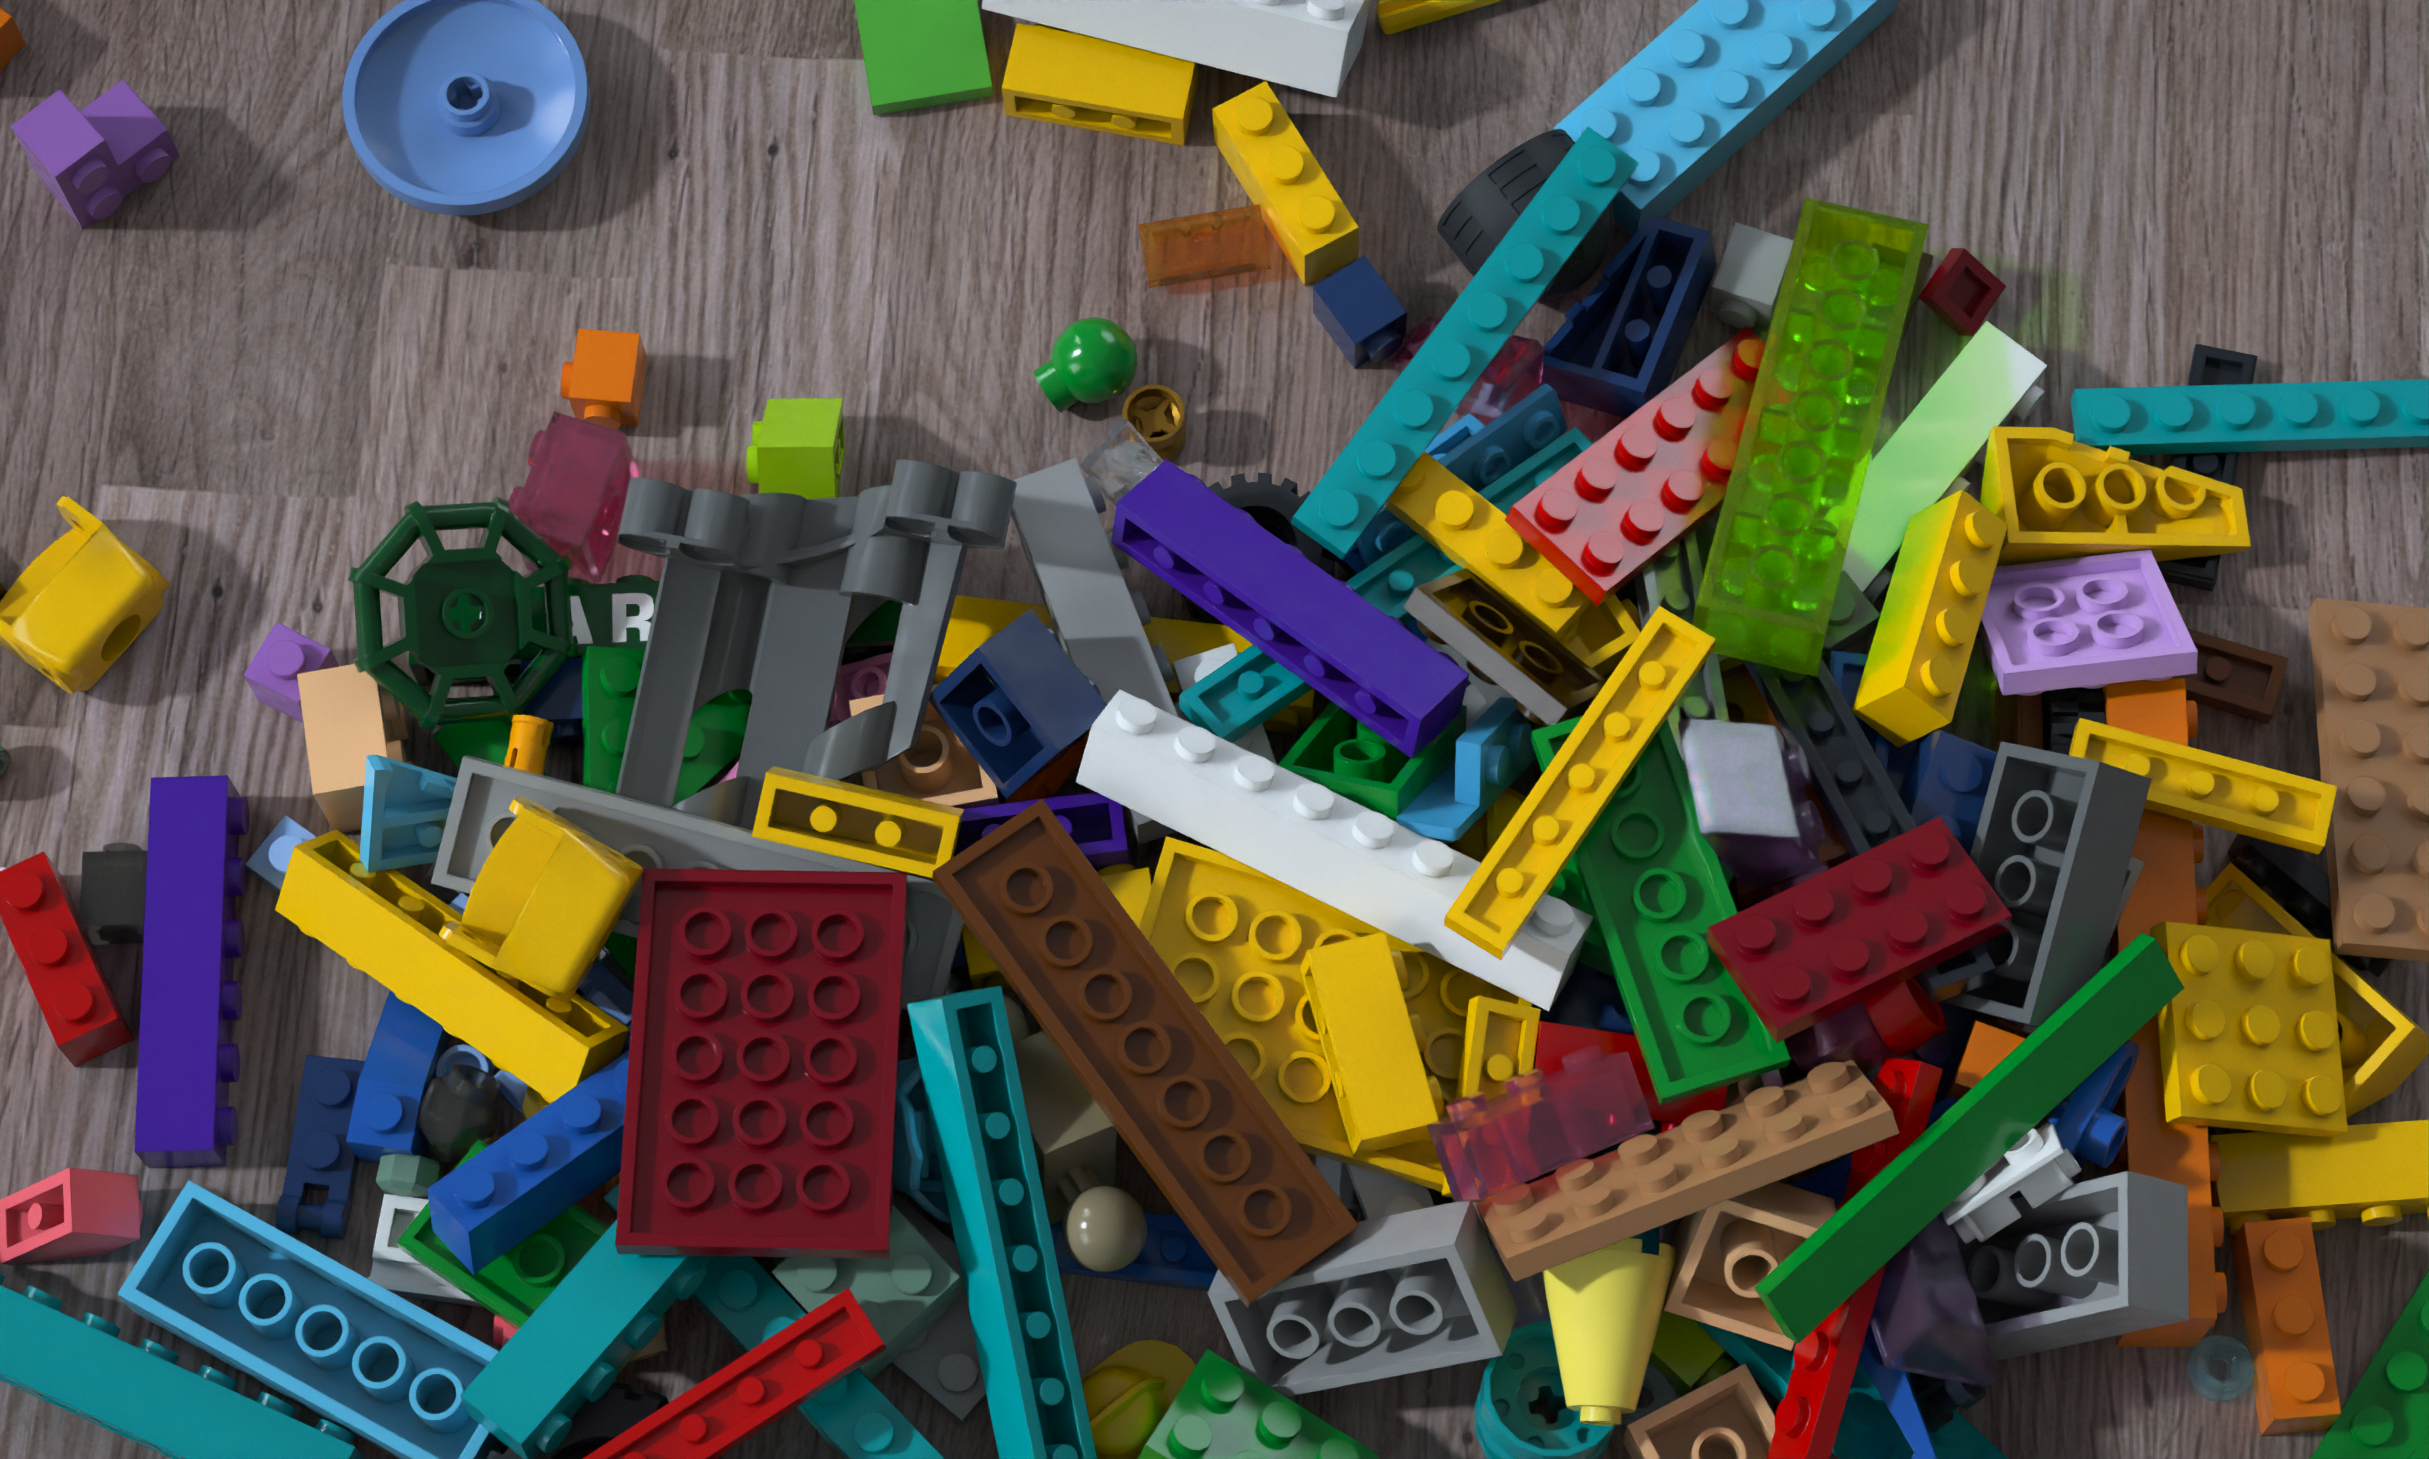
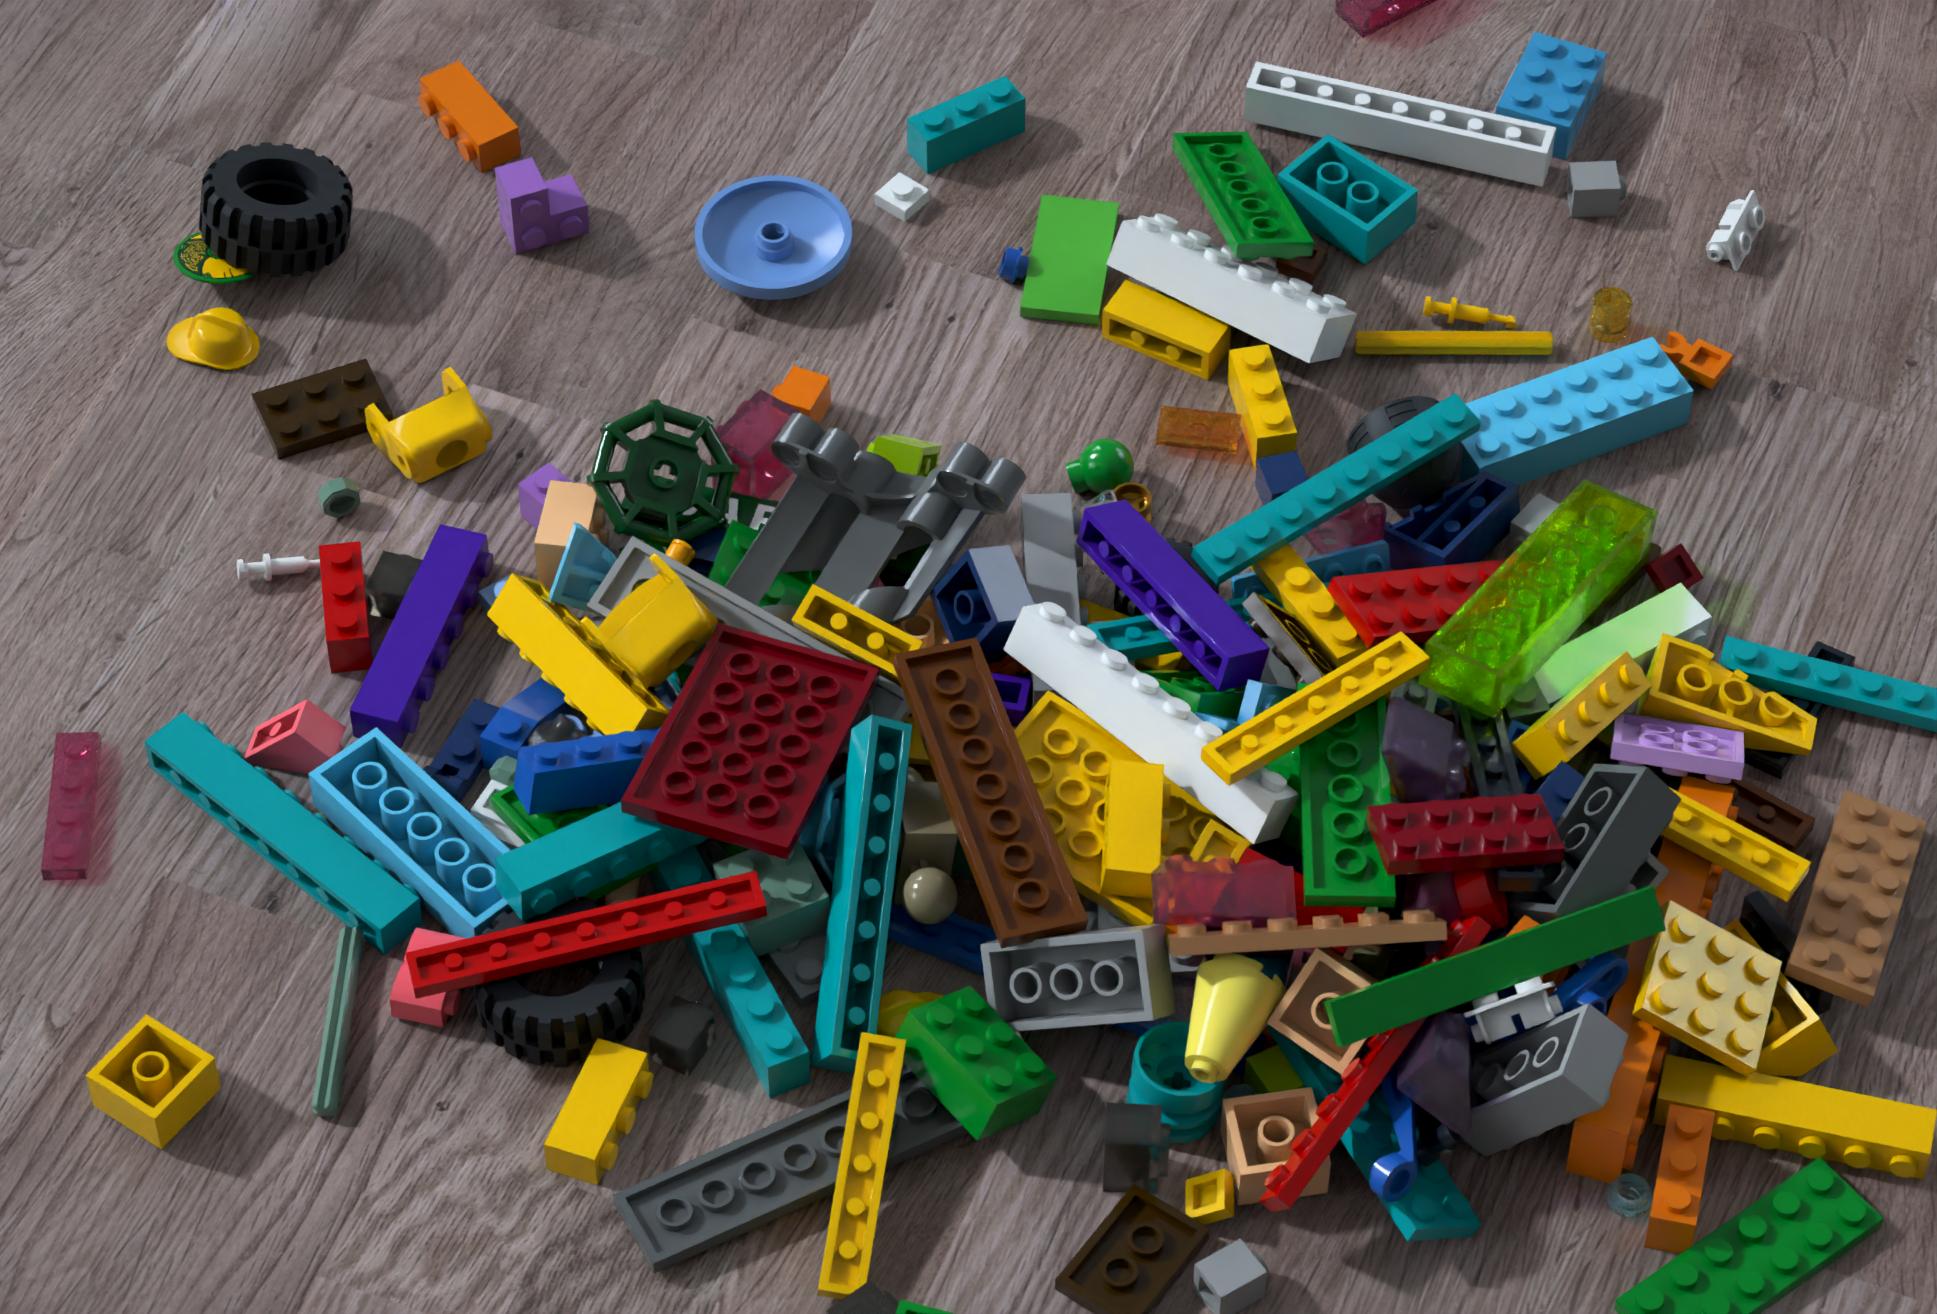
camera: 15 degrees right, 20 degrees down
(835, 31) = (1013, 264): none -> blue plate

